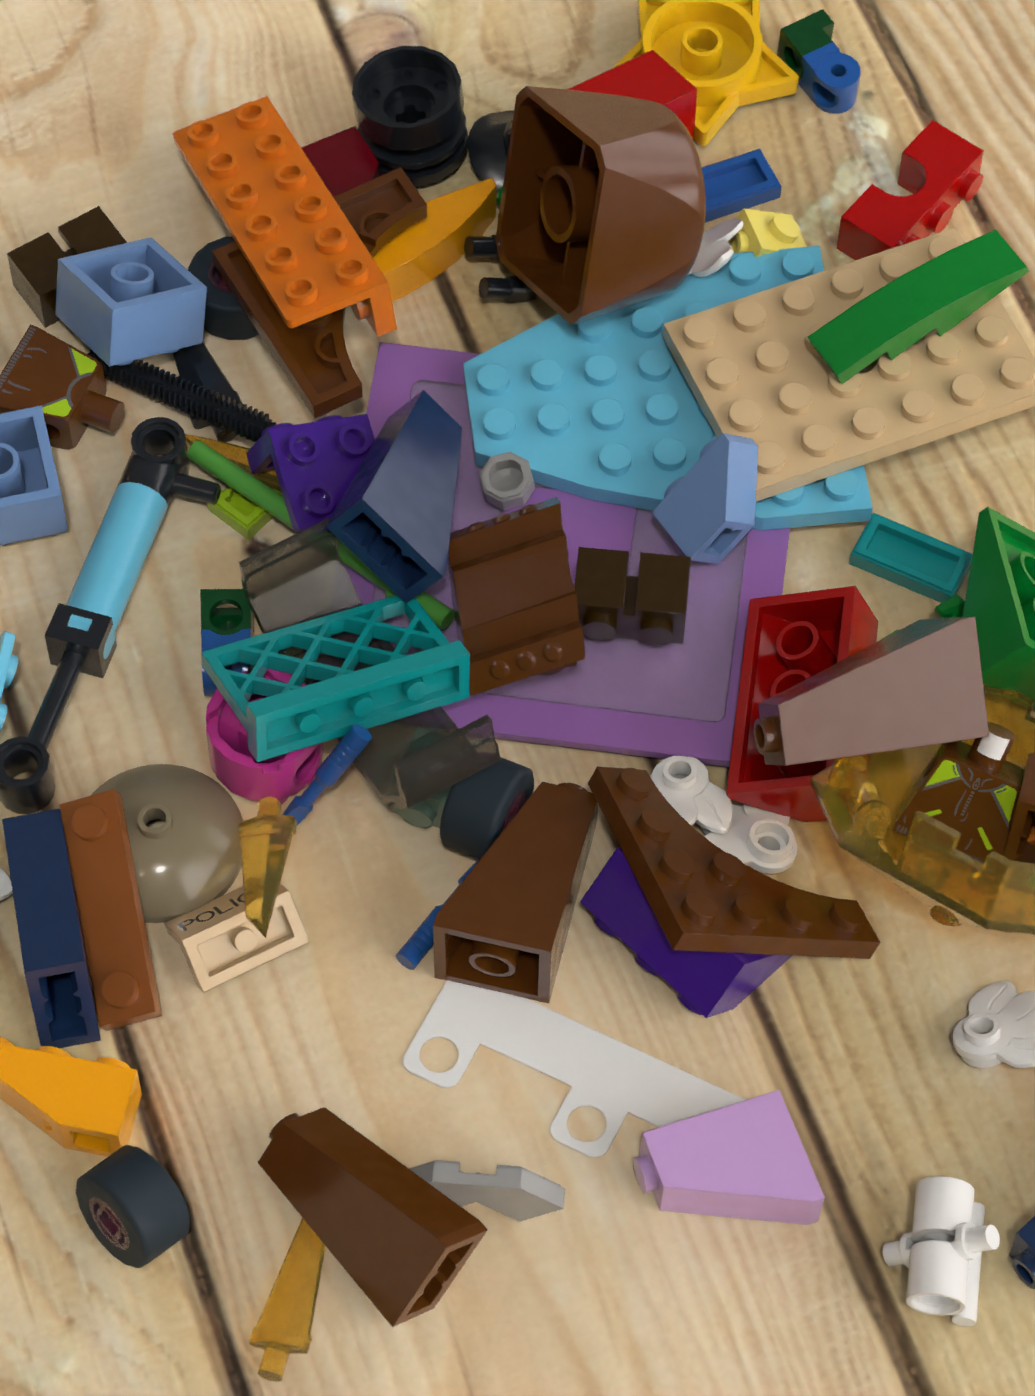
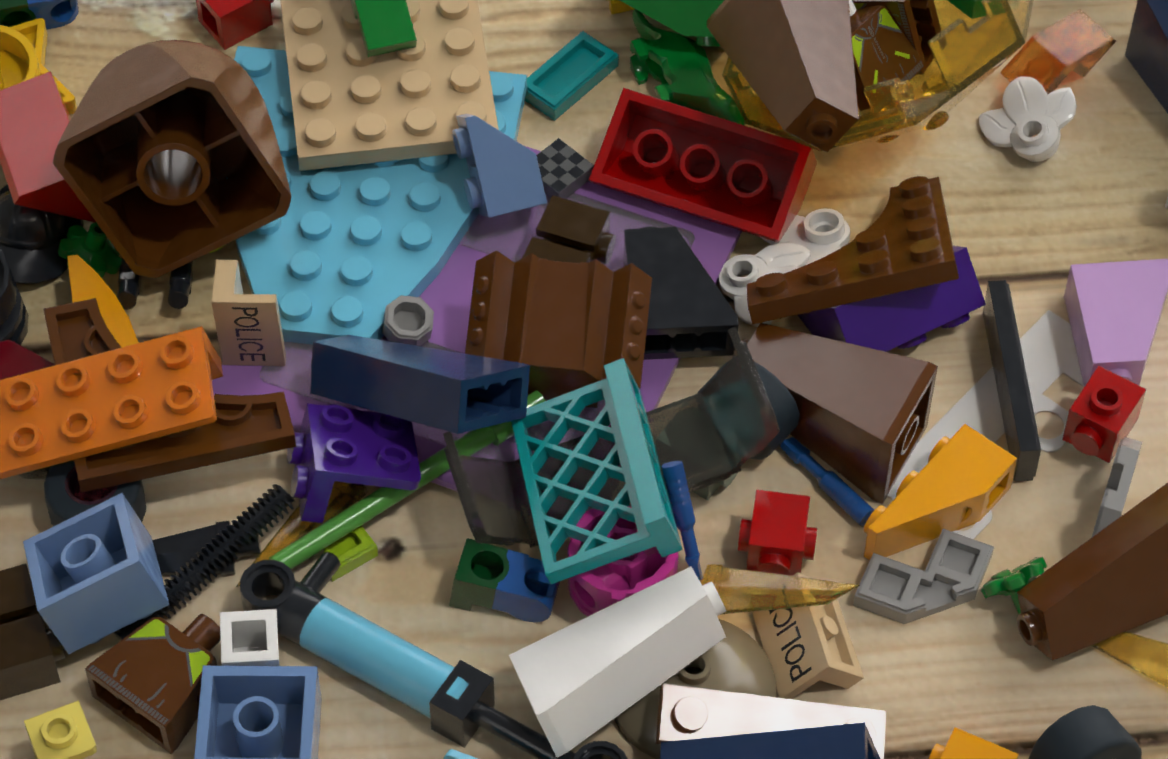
camera: 75 degrees left, 5 degrees down
(86, 448) = (249, 638): none -> white brick
(137, 742) = (617, 656): none -> white slope
(346, 874) = (778, 533): none -> red brick
(348, 1054) = (911, 593): none -> light grey tile
(358, 1114) = (1009, 583): none -> green plant
(448, 324) = (245, 323): none -> tan panel
(451, 1029) = (950, 493): none -> light orange slope
(588, 1161) = (1103, 414): none -> red brick
(610, 702) = (686, 307): none -> black slope
(615, 1064) = (1011, 380): none -> black tile
(756, 569) = (562, 169): none -> dark grey tile

